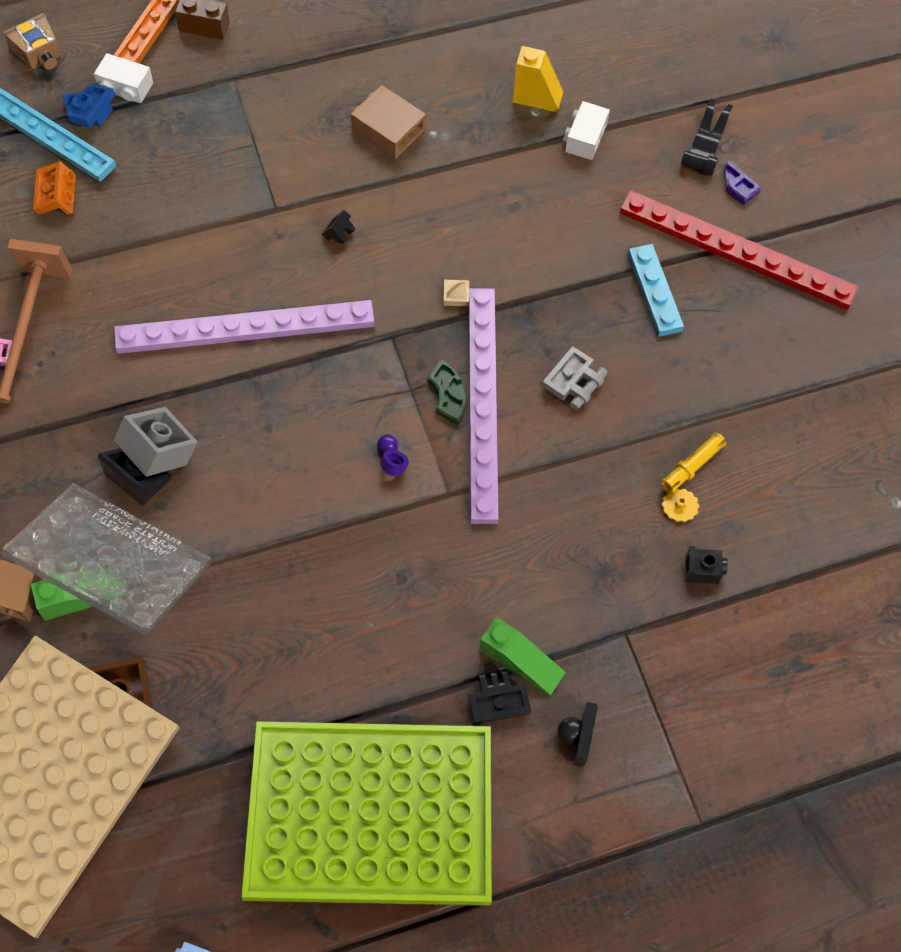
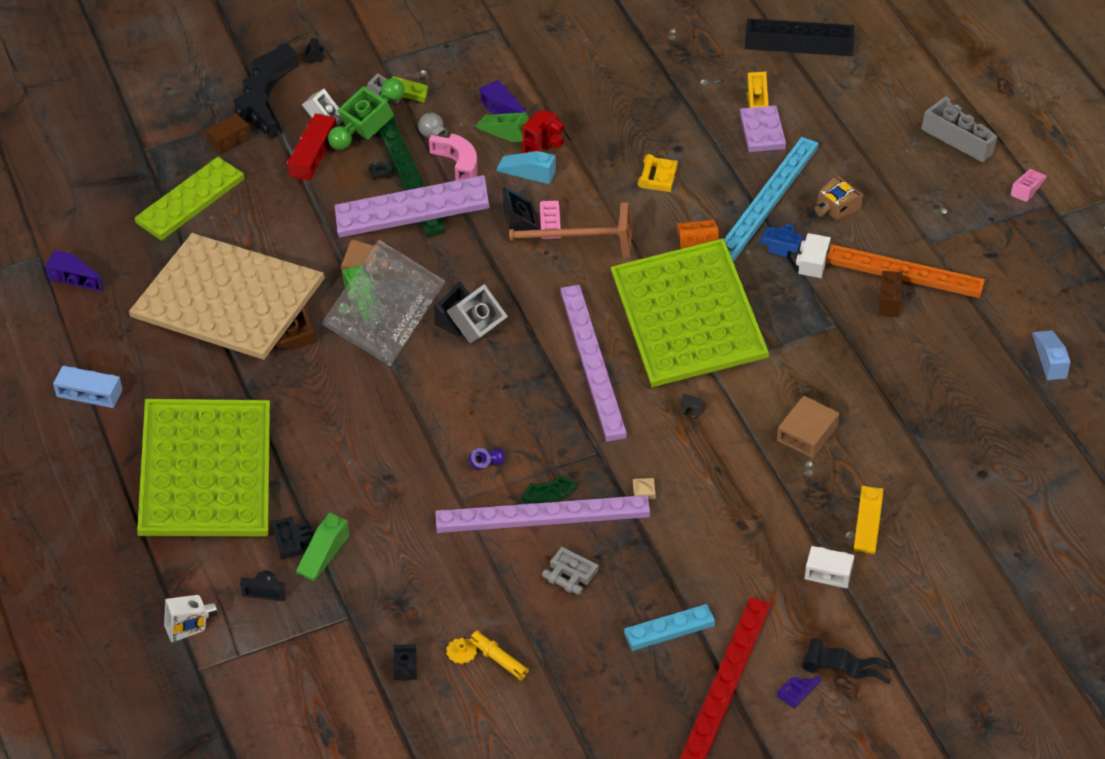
camera: 90 degrees right, 15 degrees down
(189, 213) = (688, 312): none -> lime plate
(633, 833) = (186, 616): none -> white torso

